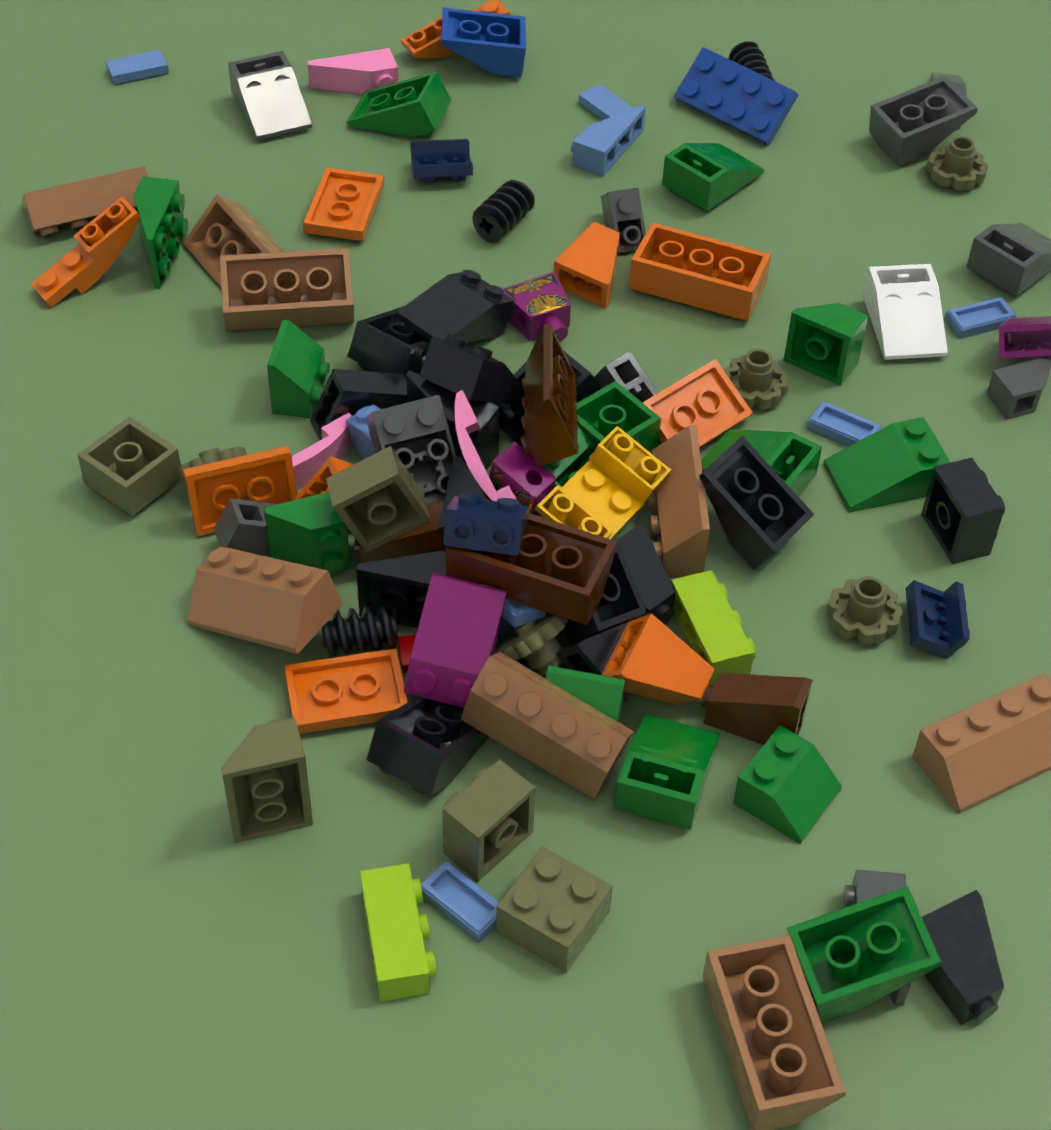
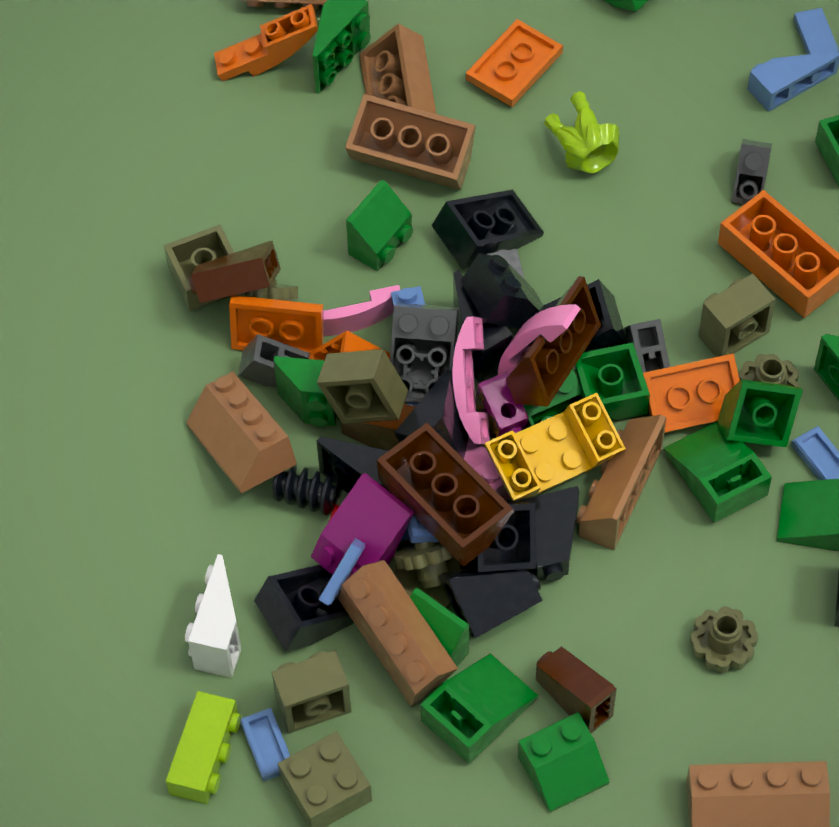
camera: 30 degrees right, 10 degrees up
(175, 449) = (236, 273): none -> reddish brown slope
(268, 782) = (162, 591): olive slope -> none
(343, 795) = (214, 634): none -> white slope
(345, 690) = (270, 534): orange plate -> none
(352, 390) = (416, 268): black slope -> none
(441, 159) = (623, 46): dark blue bracket -> none
(458, 682) = (342, 571): none -> medium blue tile
(459, 306) = (543, 217): black slope -> none
(460, 235) = (588, 144): none -> lime piece
(485, 524) = (415, 452): dark blue bracket -> none
(503, 210) = (646, 120): black piece -> none
(539, 303) = (621, 236): magenta torso -> none
(548, 363) = (548, 323): none -> bright pink slope
(590, 264) = (694, 207): orange slope -> none
(658, 663) = (512, 618): orange slope -> none
(693, 331) = (736, 316): none -> olive brick
(712, 625) = (587, 601): lime brick -> none
(753, 503) = (678, 505): black slope -> none
(772, 396) = (759, 413): none -> green slope
(937, 618) = (778, 671): dark blue bracket -> none

